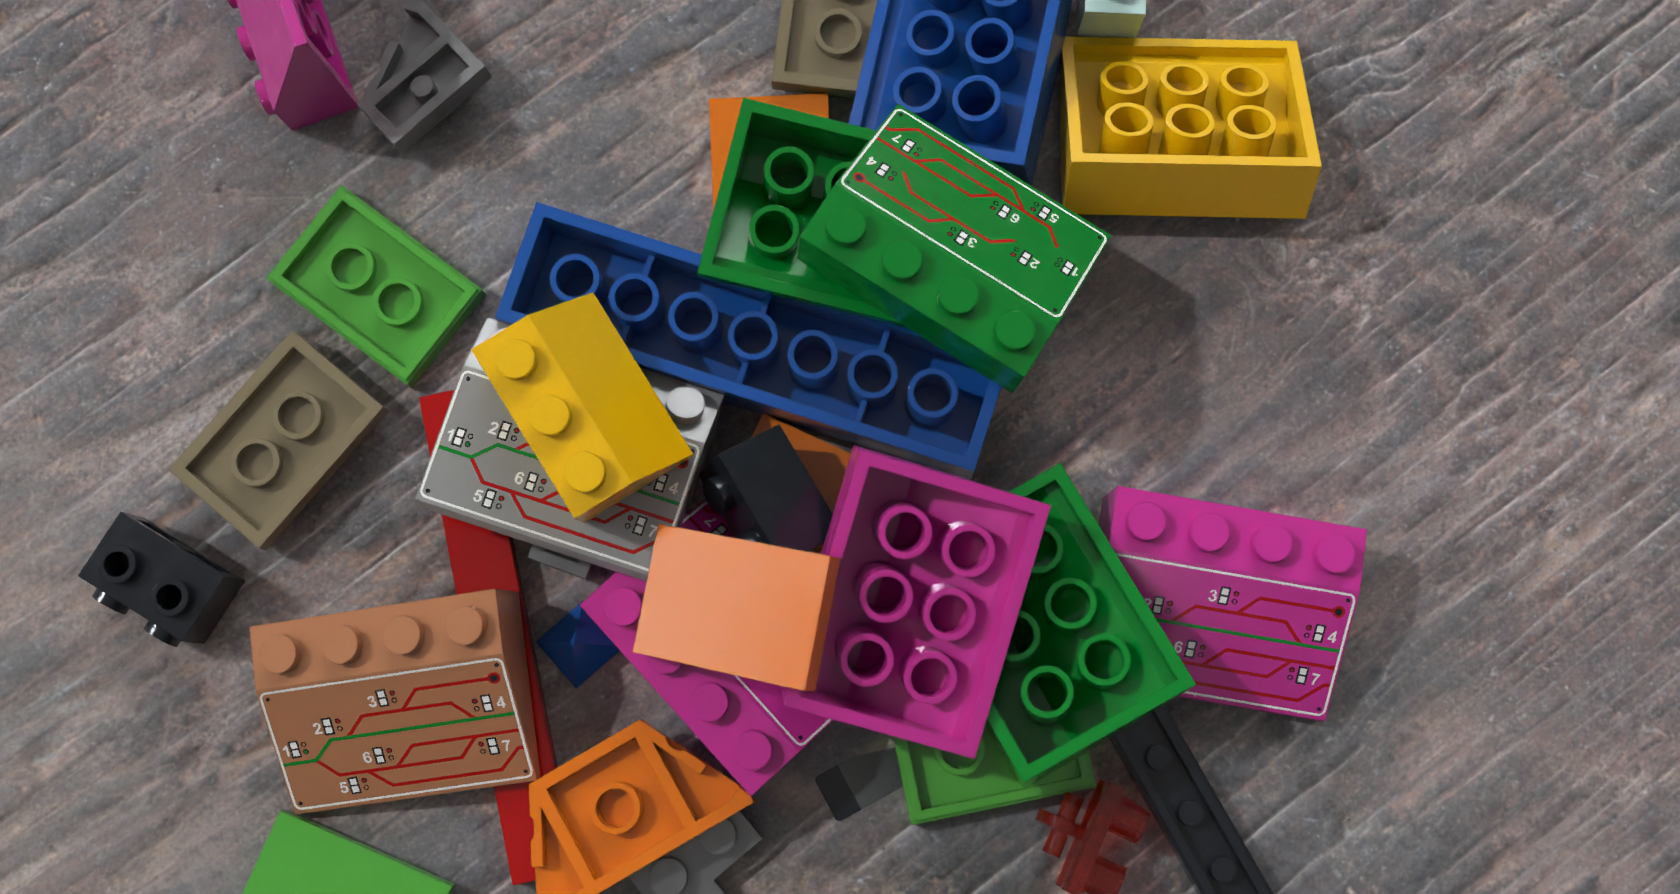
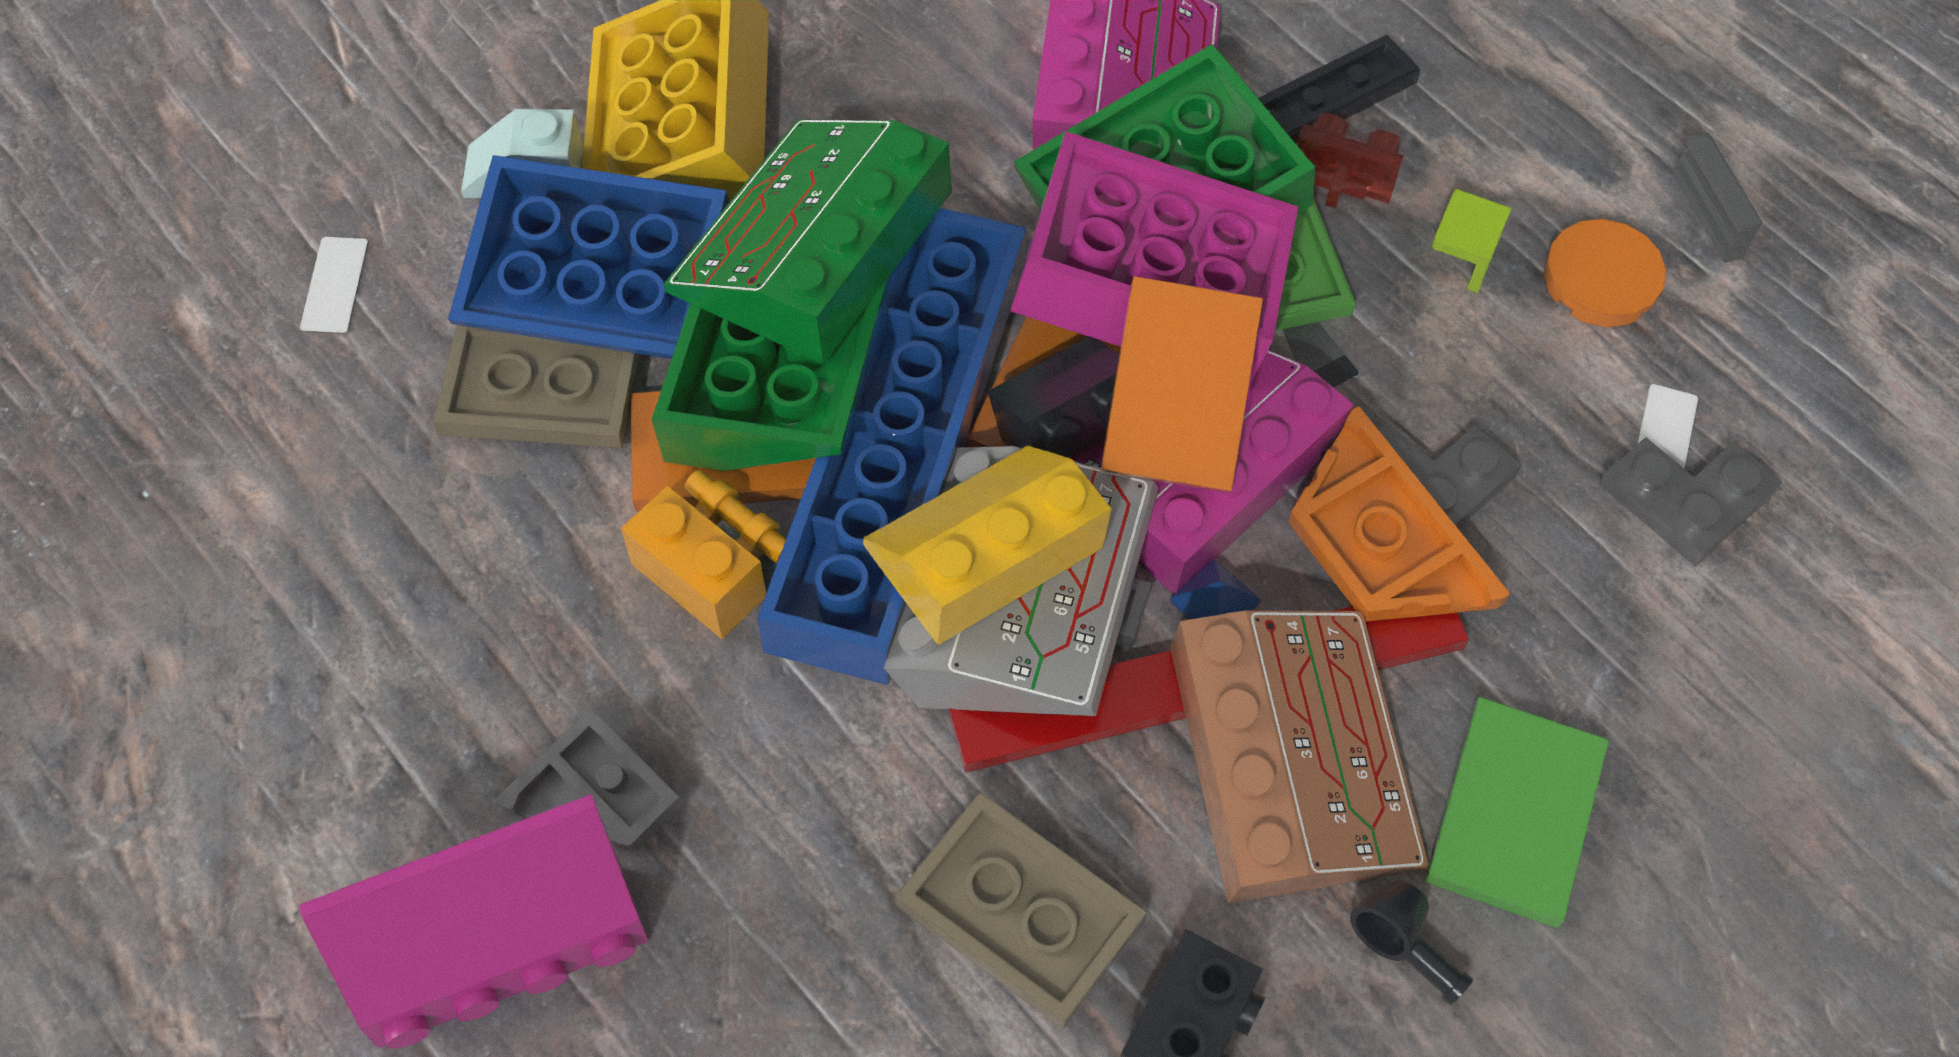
camera: 95 degrees left, 20 degrees down
(238, 776) = (1393, 925): none -> black bar
(376, 286) = (836, 828): bright green tile -> none
(633, 154) = (697, 560): none -> light orange brick

